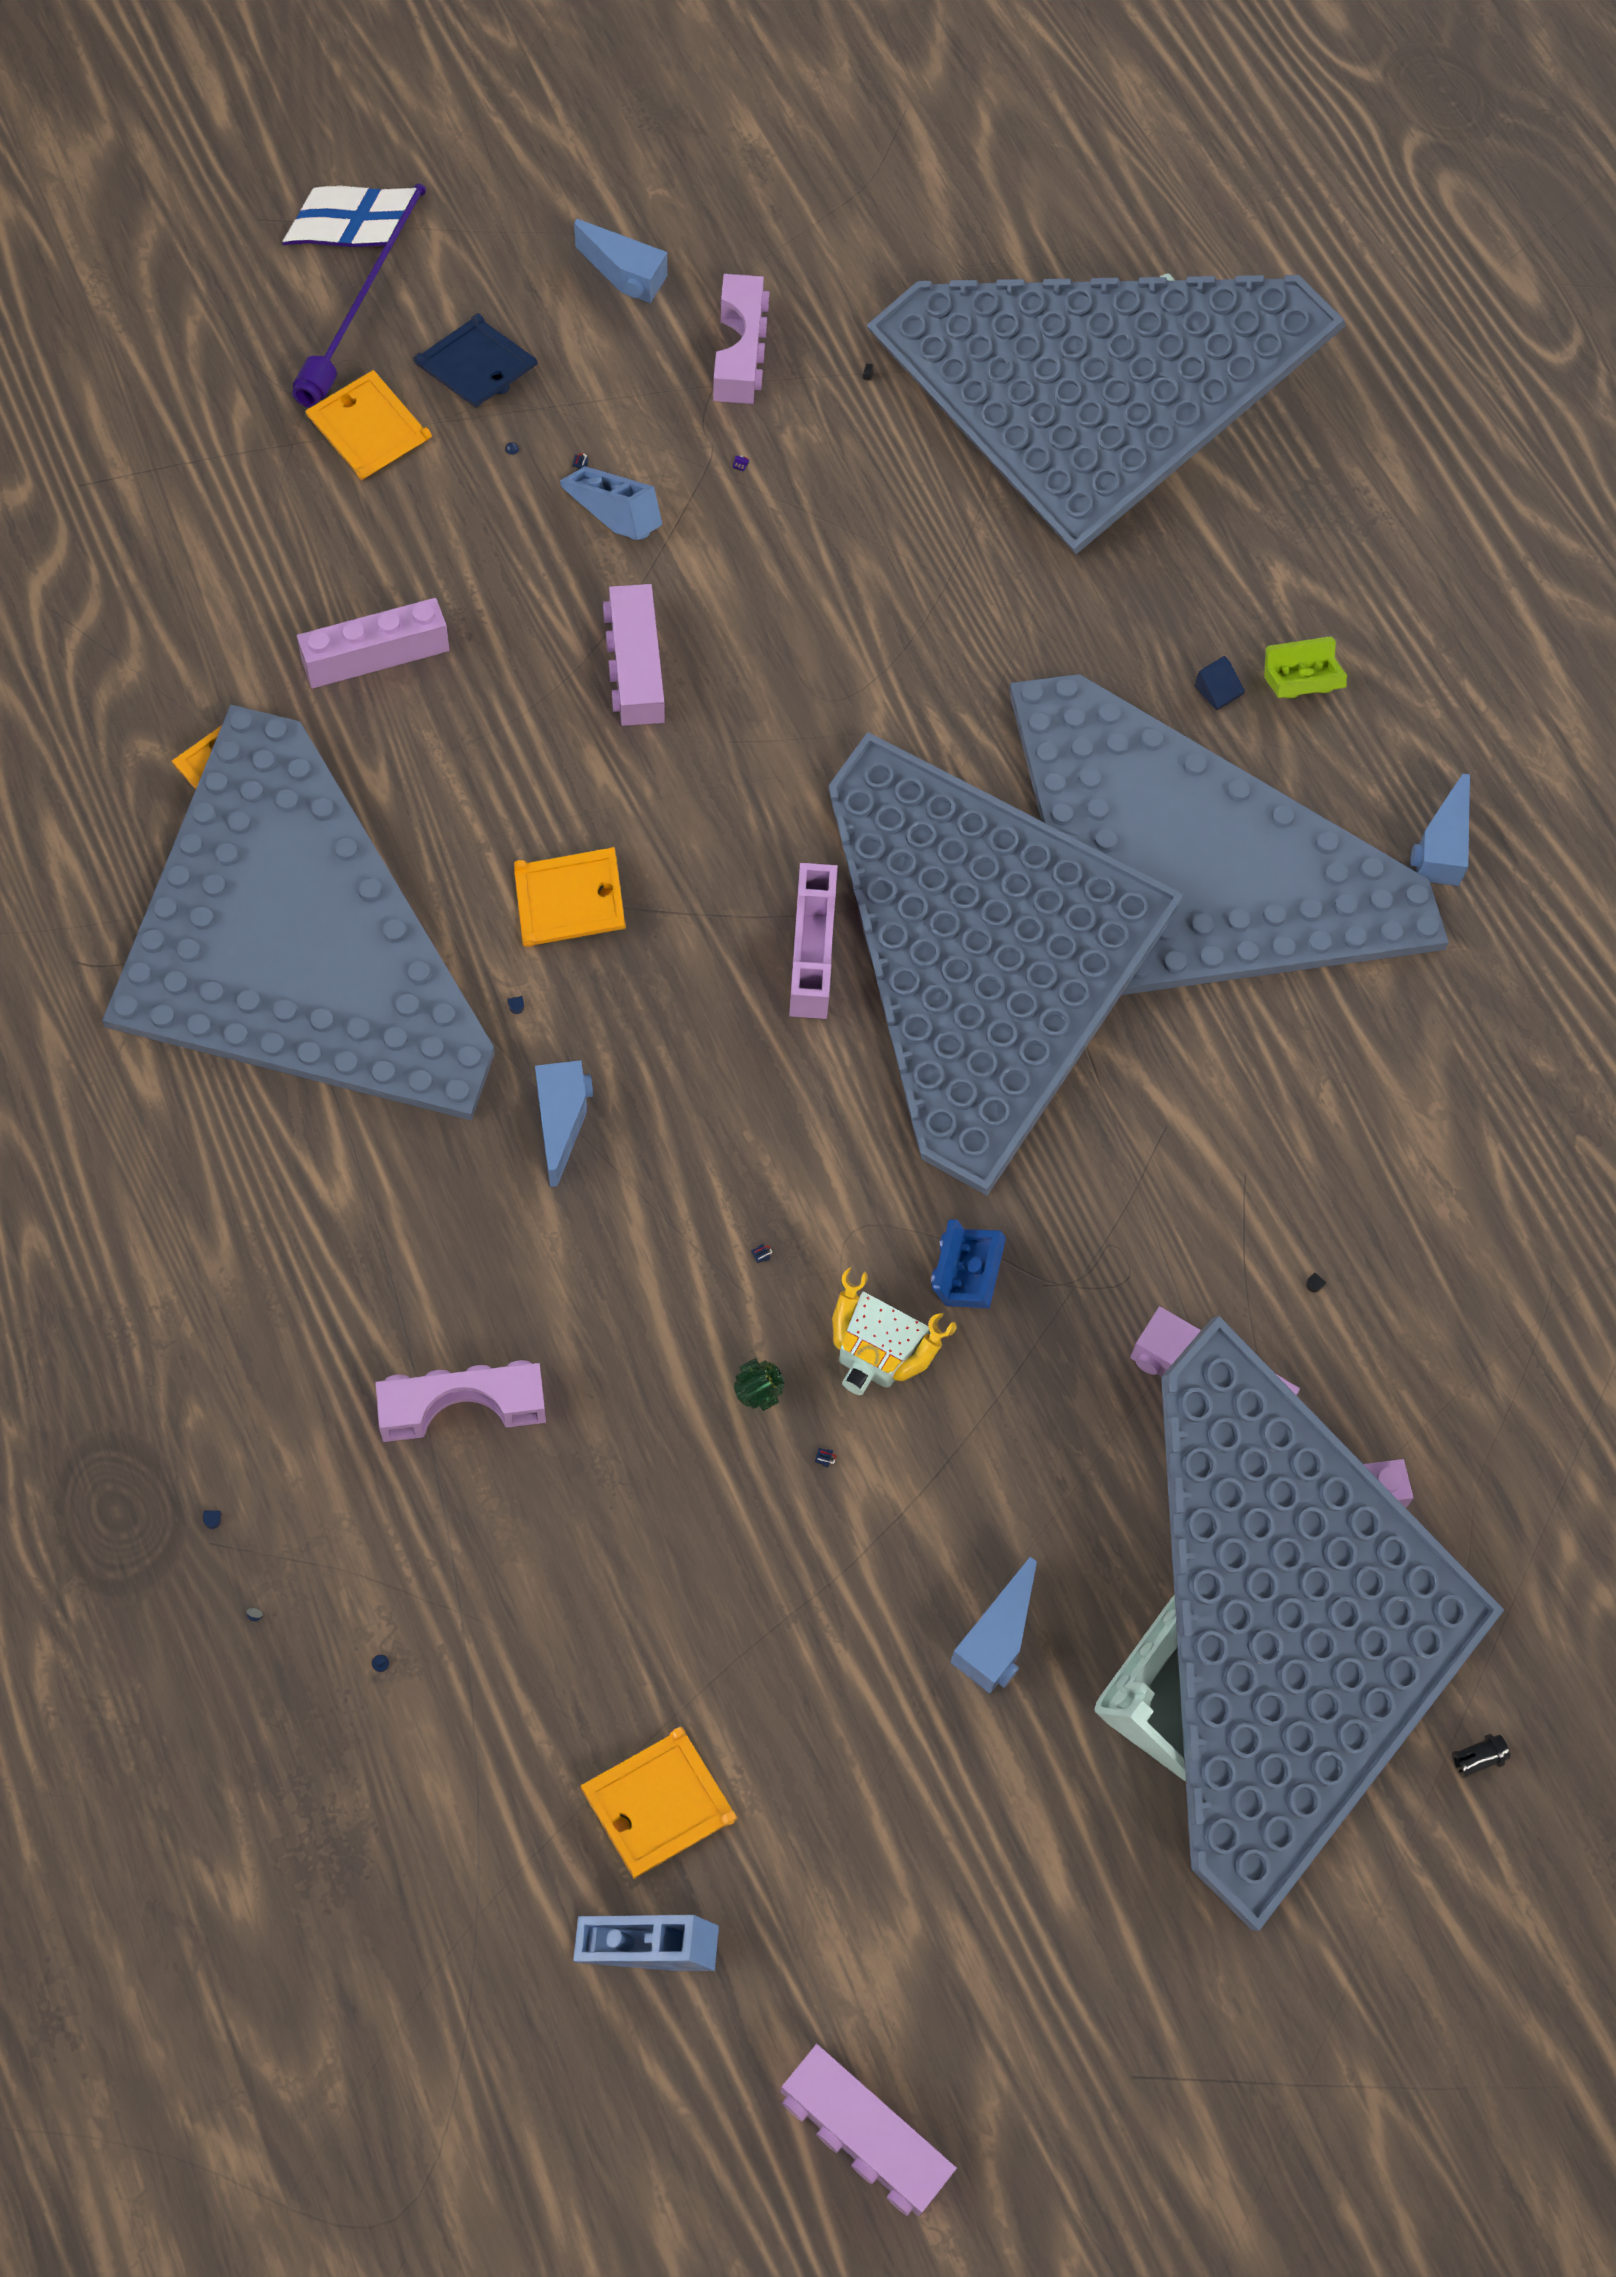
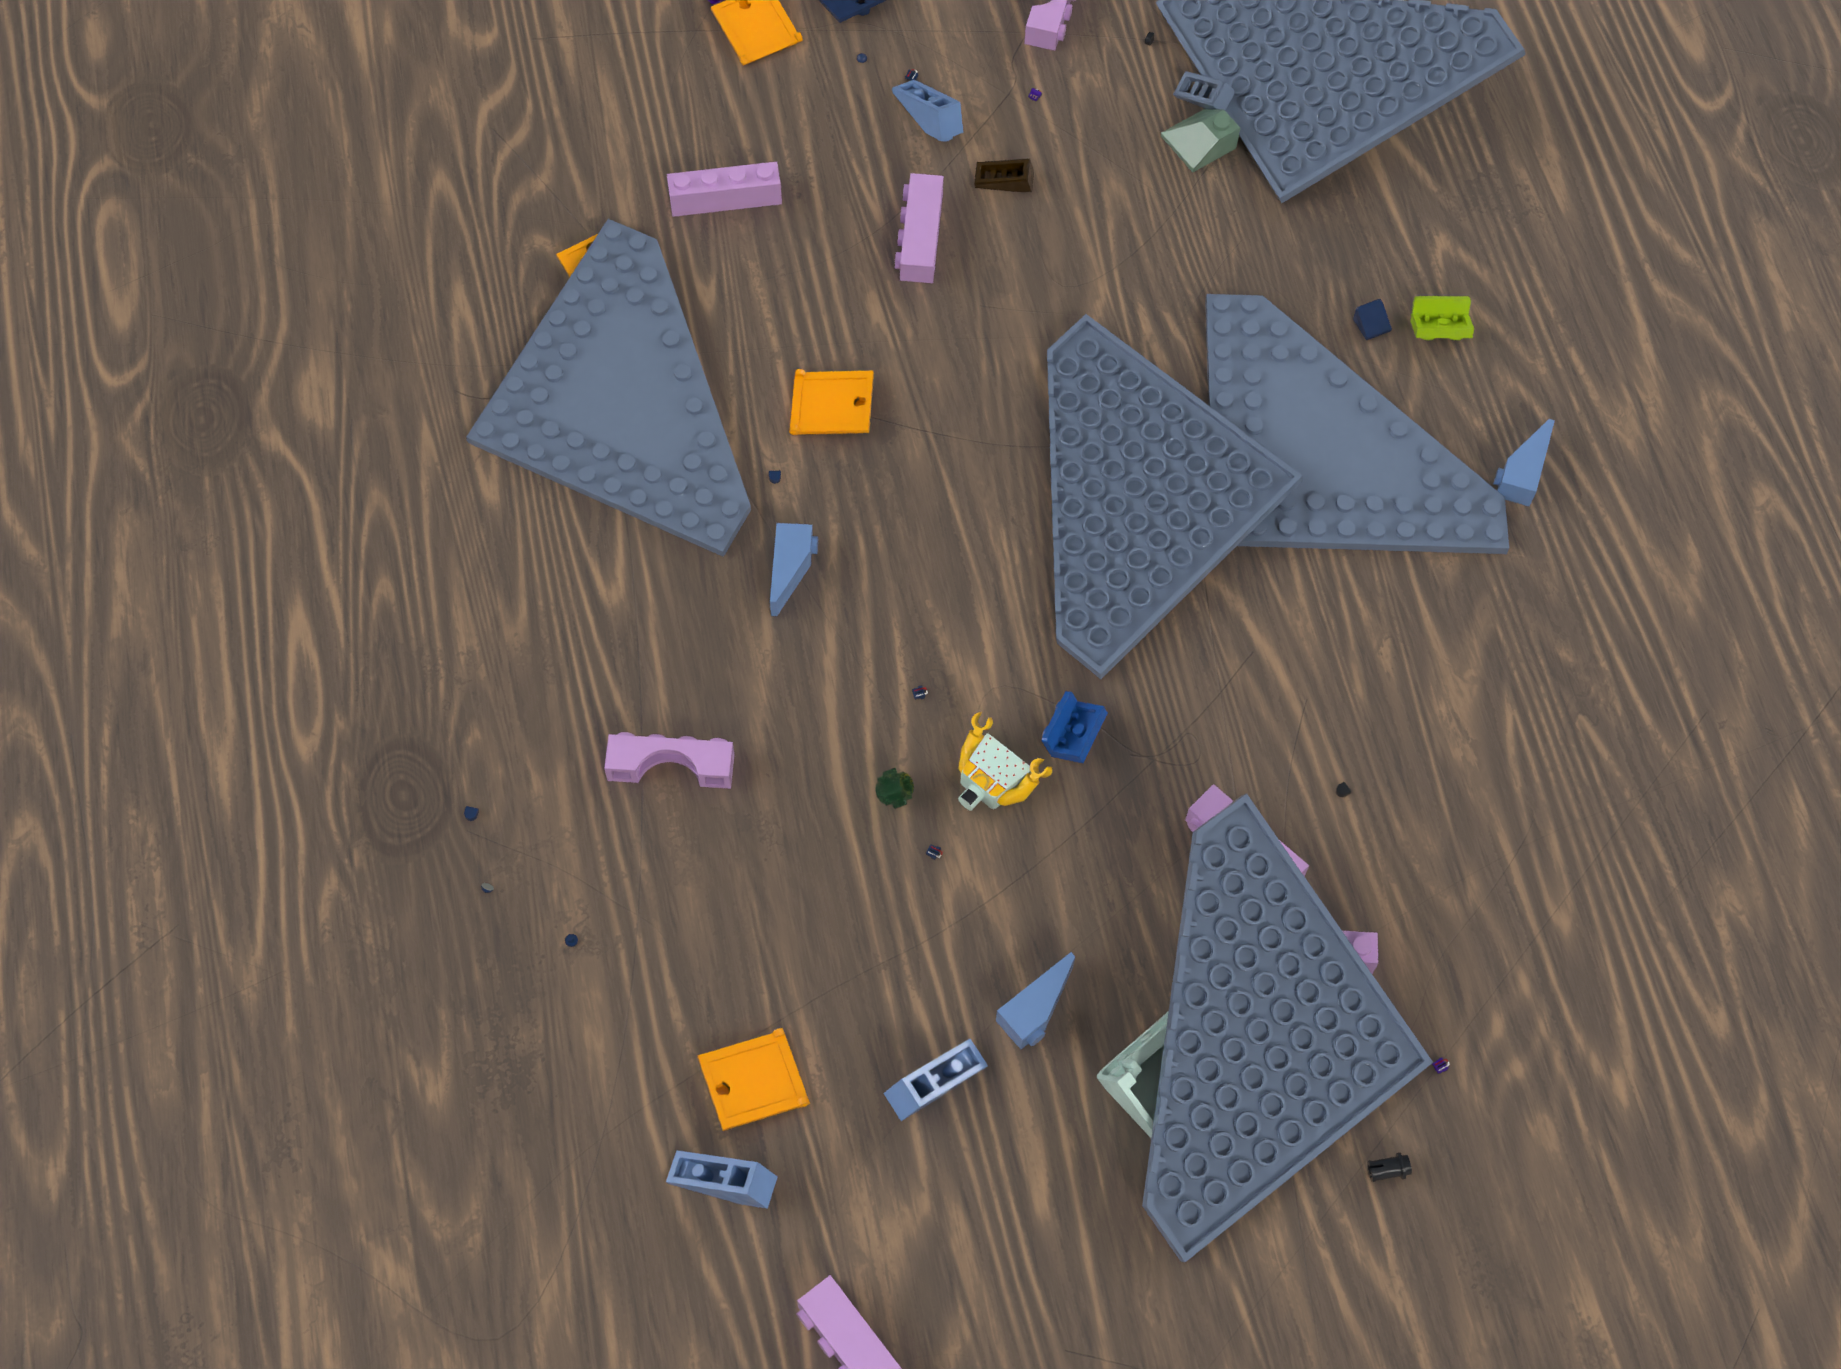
camera: 15 degrees right, 0 degrees up
(728, 581) = (1014, 184): none -> dark brown slope
(813, 941) = (1009, 465): lavender arch -> none
(892, 1756) = (935, 1079): none -> medium blue slope
(962, 486) = (1203, 137): none -> sand green slope
(971, 435) = (1218, 98): none -> sand blue slope
(1512, 1612) = (1440, 1065): none -> dark purple piece

